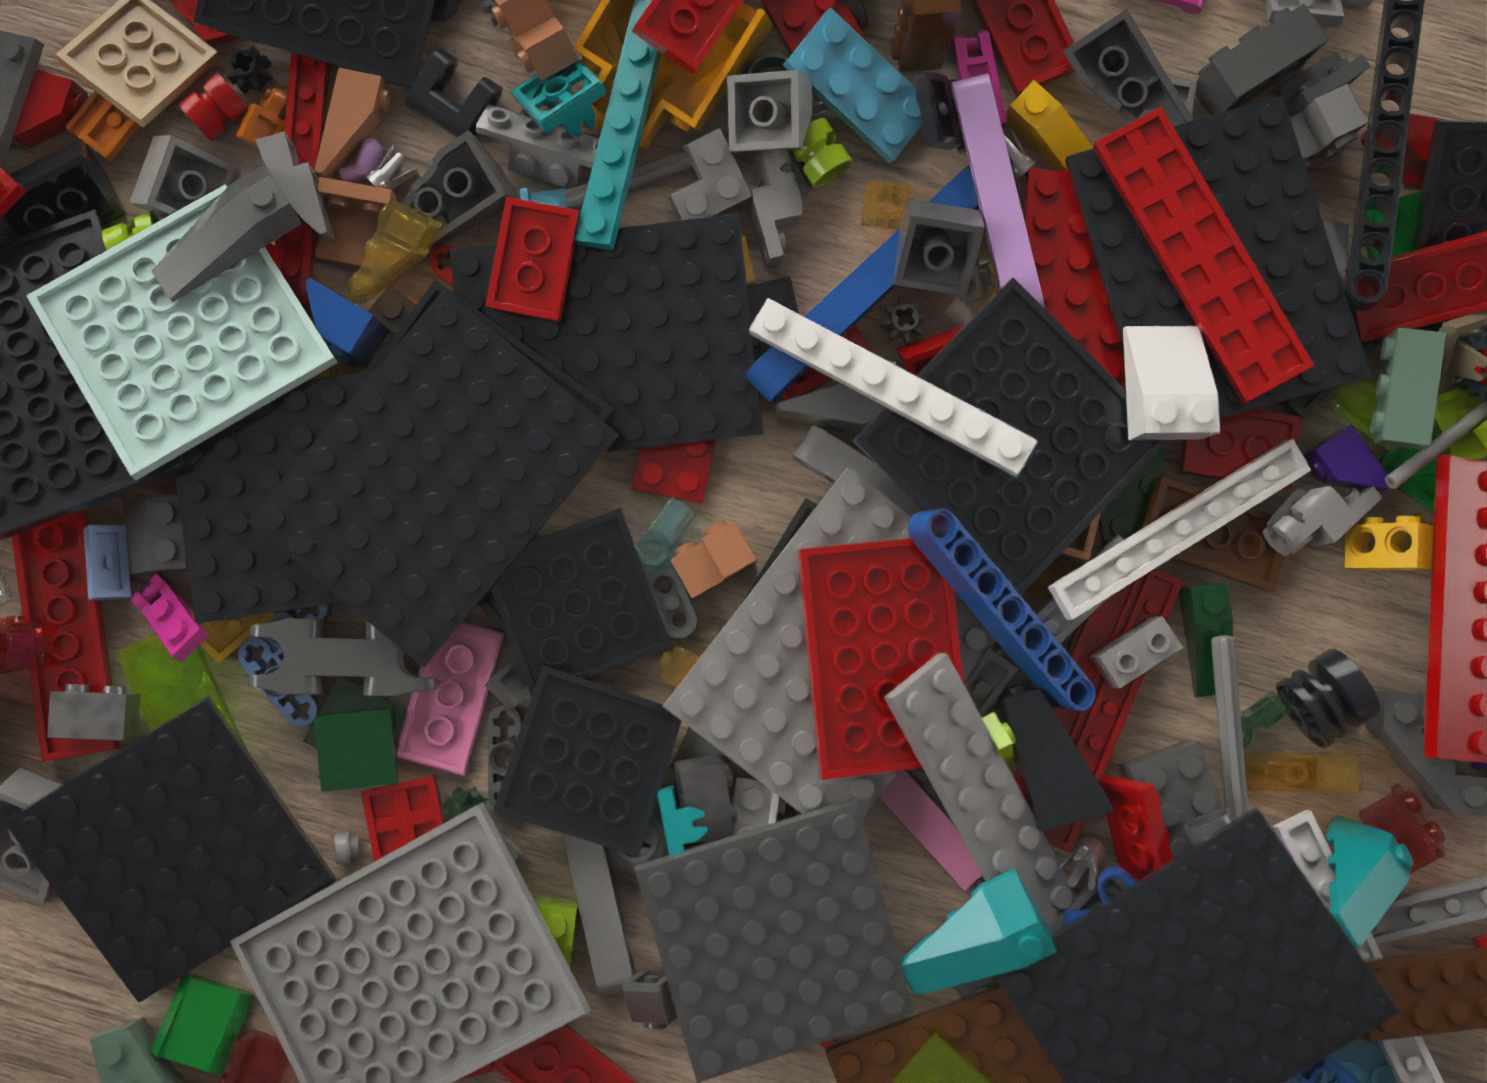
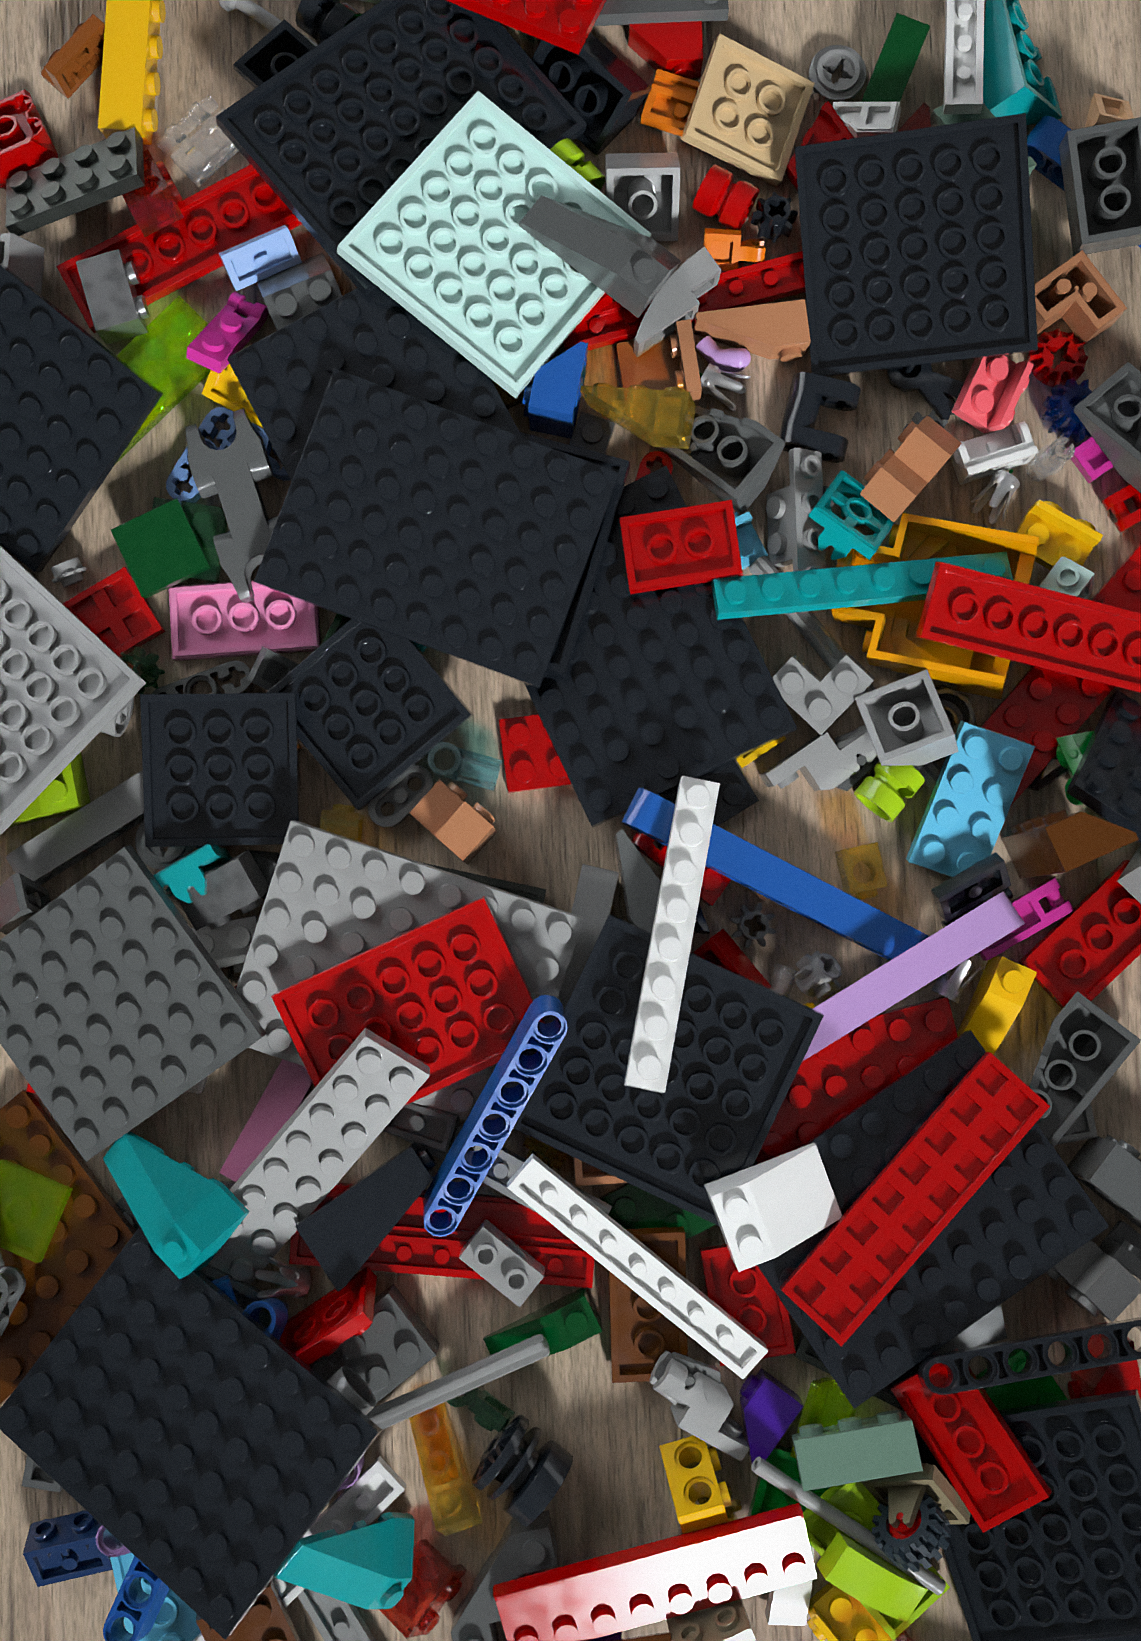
camera: 70 degrees right, 0 degrees up
(937, 247) = (832, 932): dark grey slope -> none
(1002, 738) = (371, 1157): lime plate -> none

